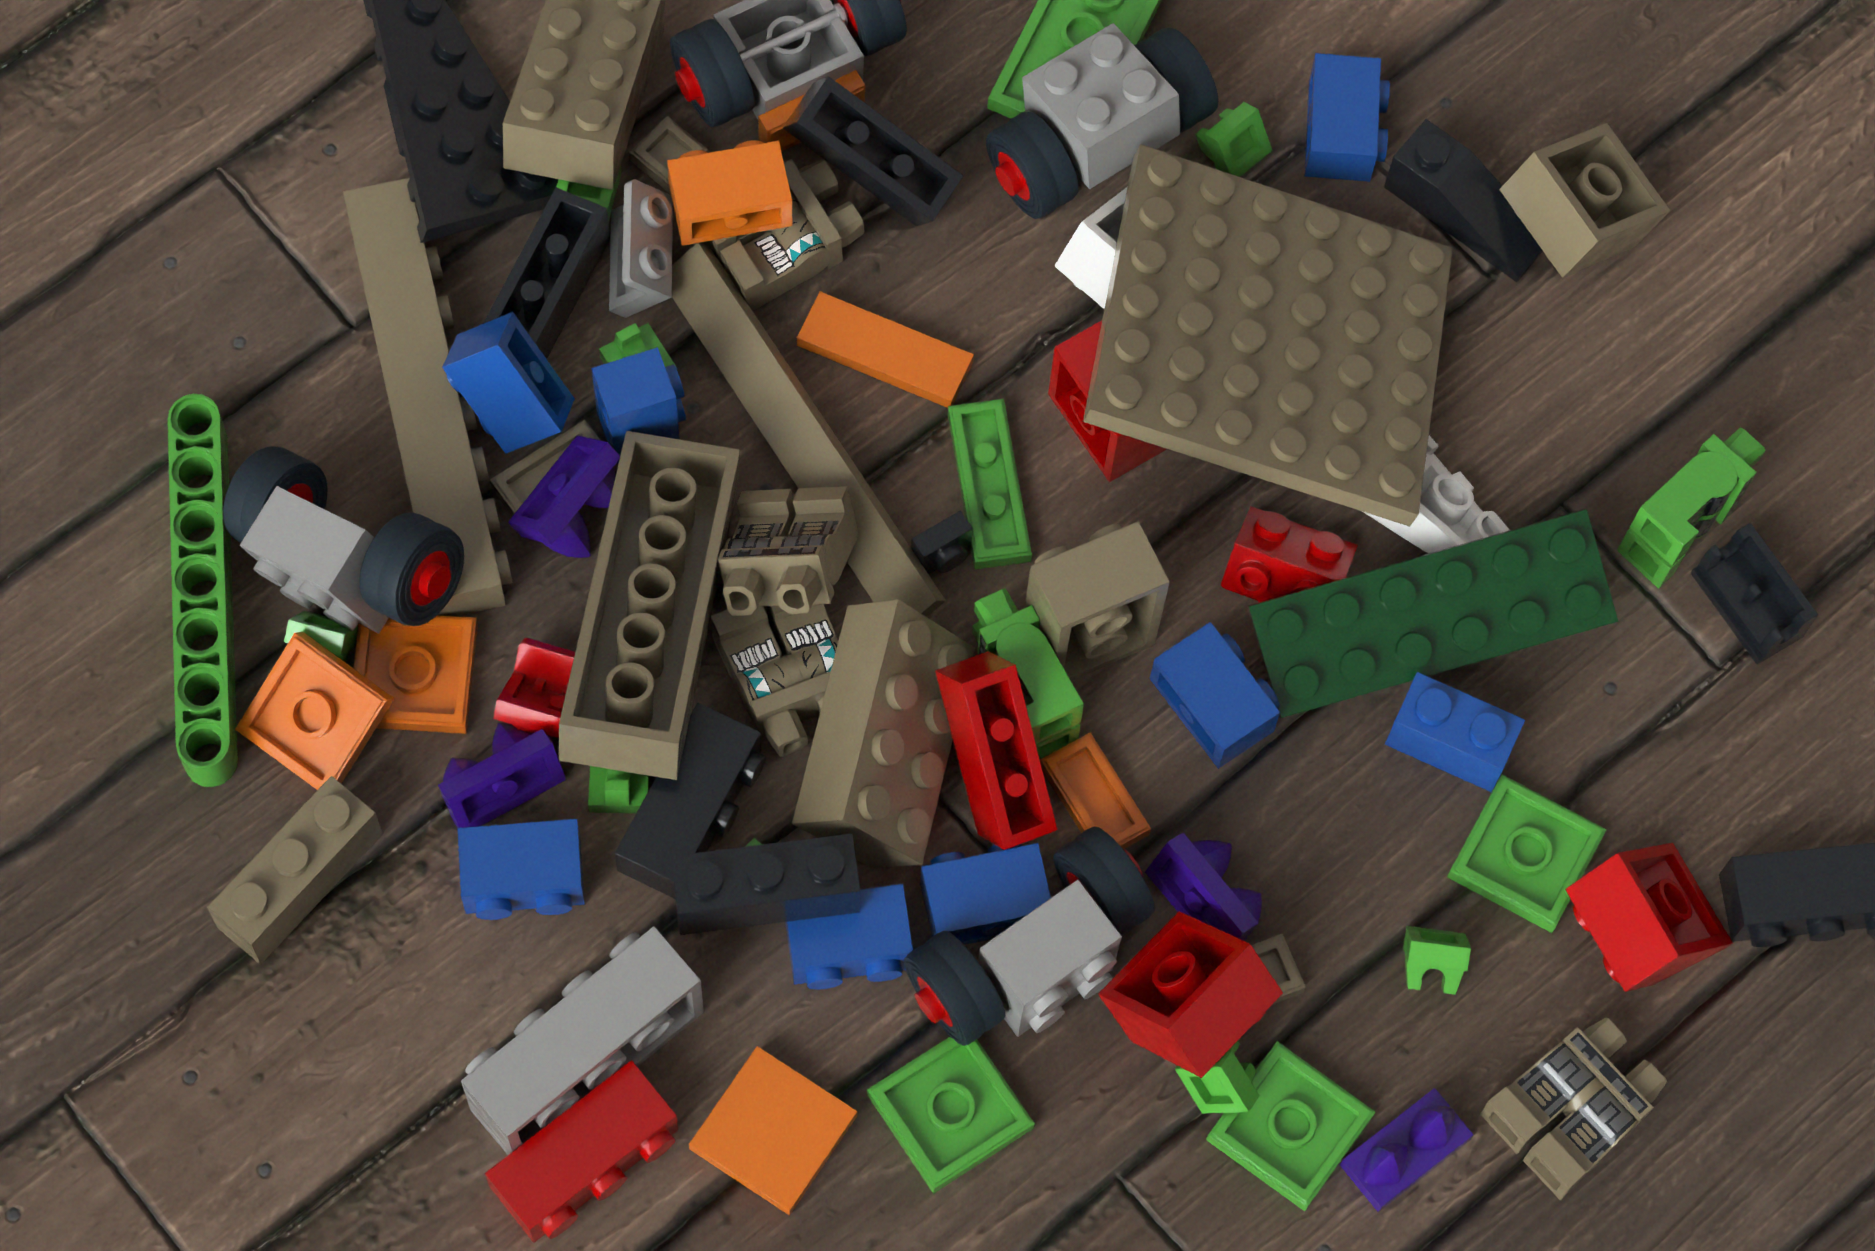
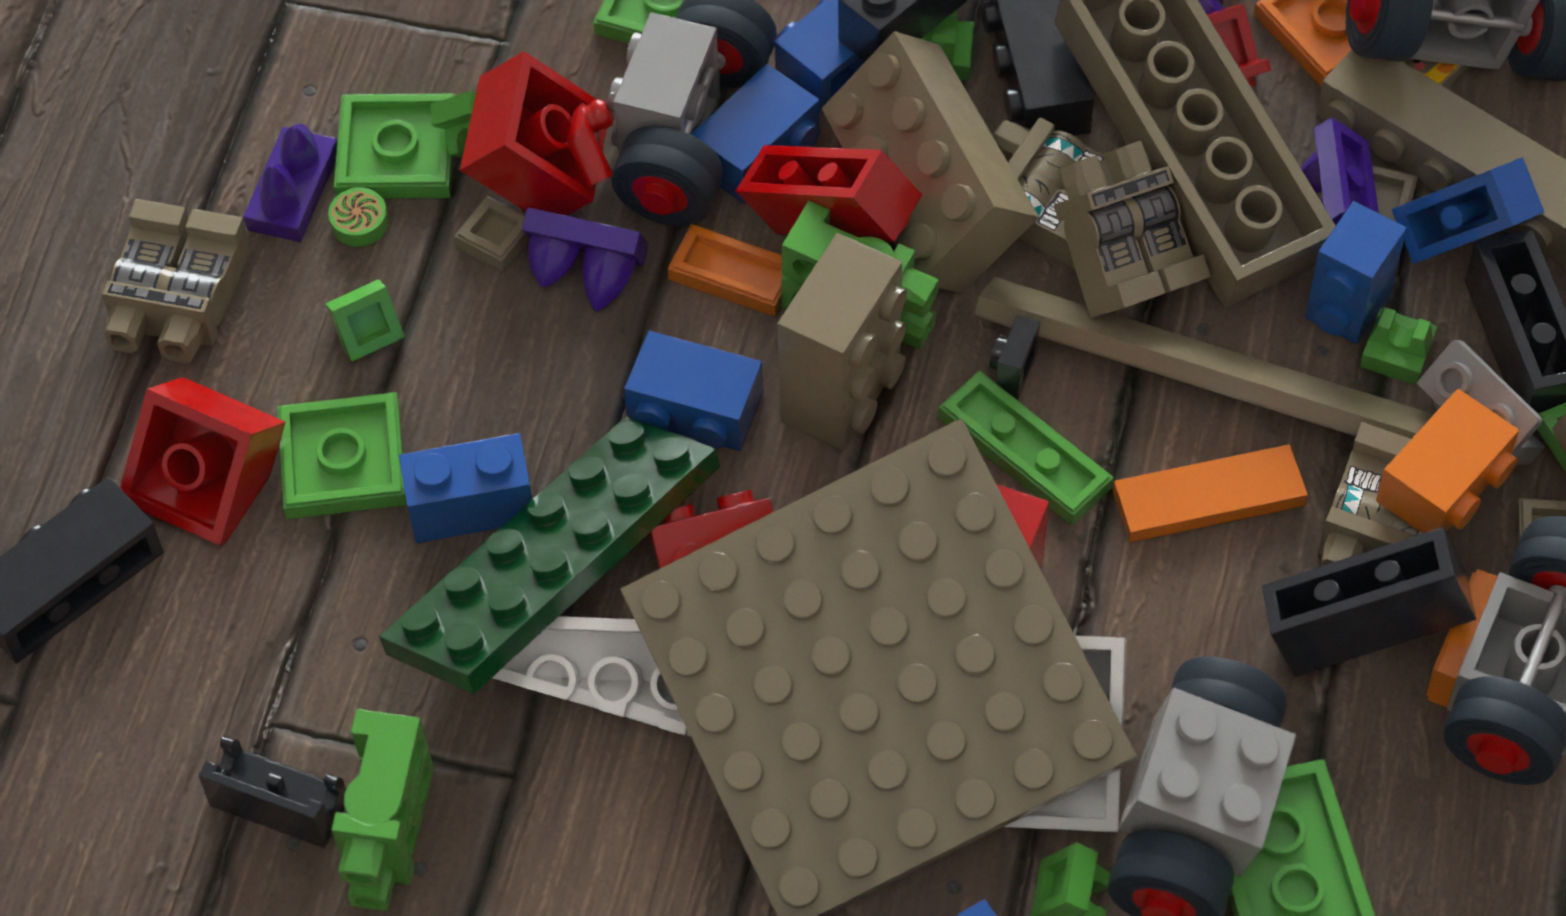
camera: 150 degrees right, 10 degrees down
(1160, 944) = (584, 140): none -> red arm
(1371, 1071) = (358, 217): none -> tile

